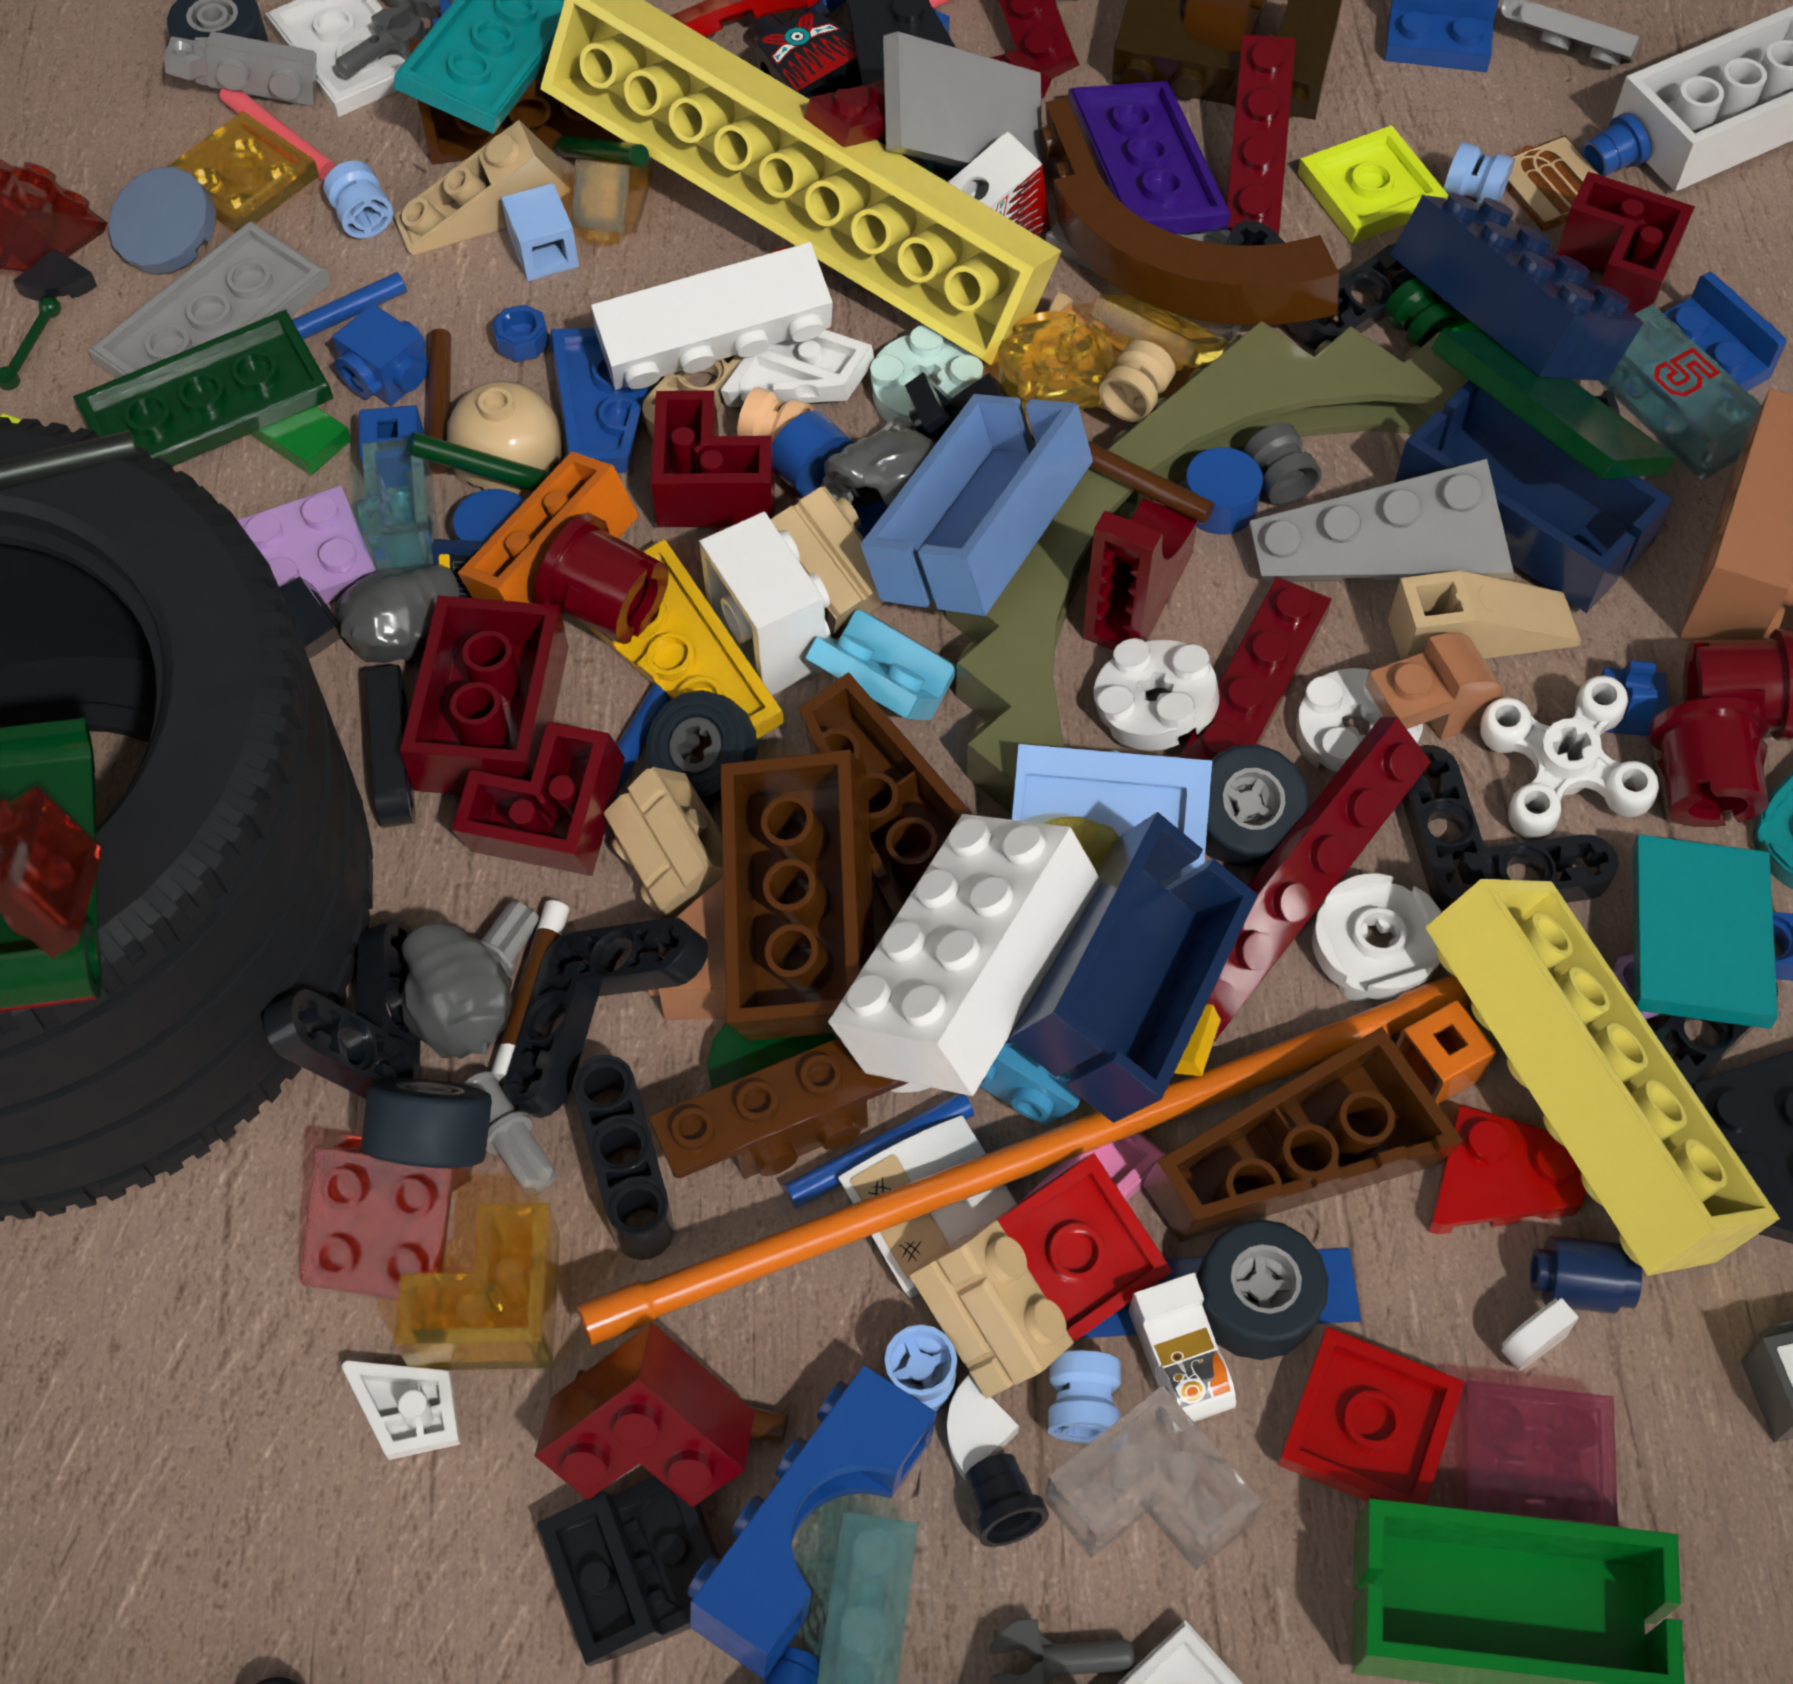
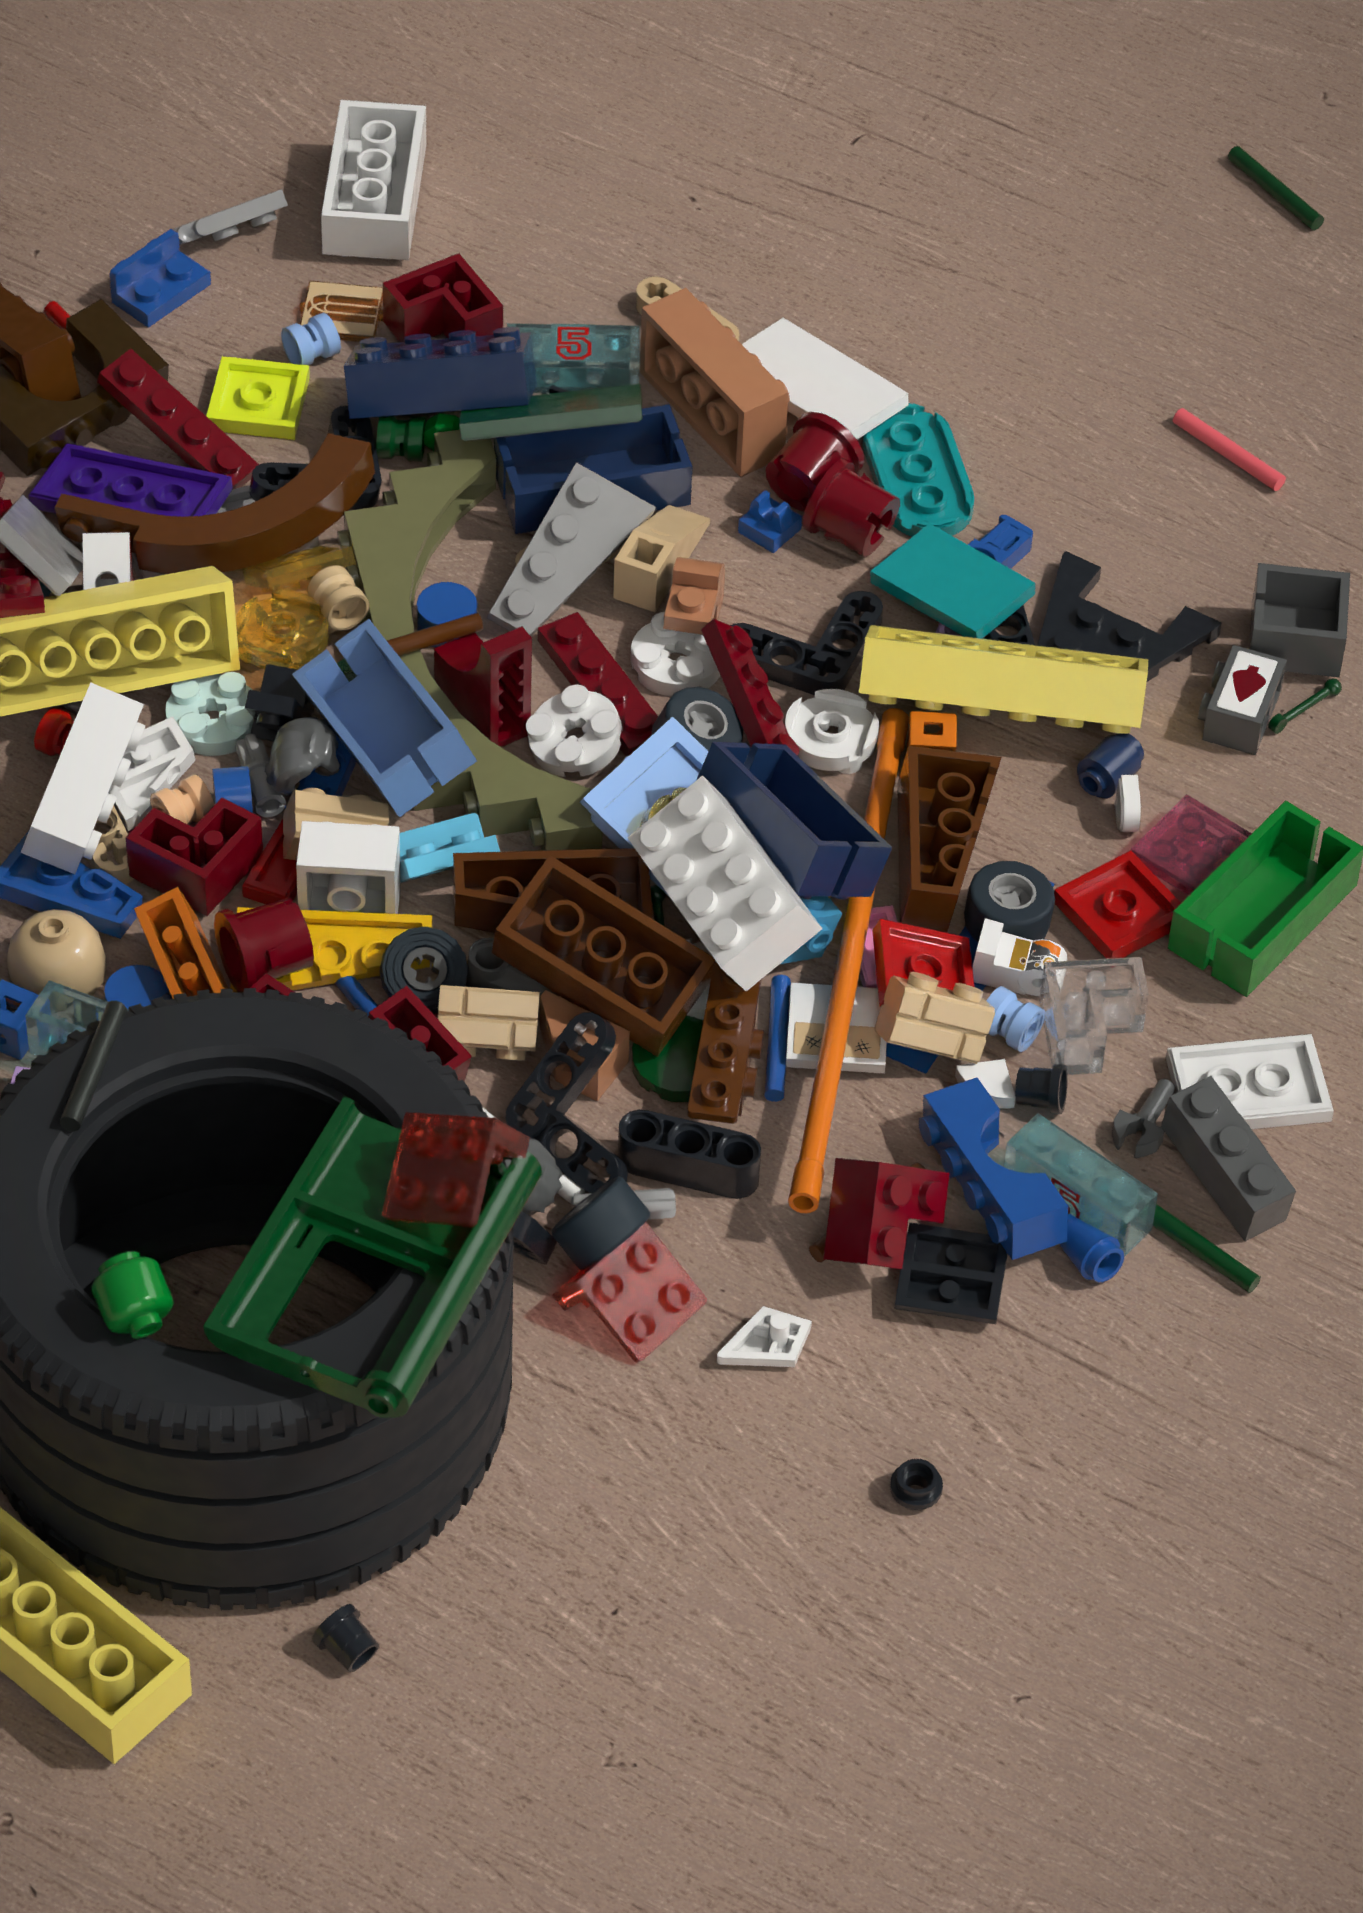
camera: 60 degrees left, 10 degrees down
(475, 461) = (97, 963): dark green bar -> none
(496, 1313) = (744, 1248): clear yellow brick -> none
(916, 1356) = (936, 1071): light blue wheel -> none
(1285, 468) = (456, 569): dark grey wheel -> none
(1504, 1175) = (1026, 766): red wing -> none
(1581, 741) = (788, 572): white gear -> none
(1618, 145) = (351, 259): blue piece -> none
(1729, 331) = (547, 302): blue bracket -> none

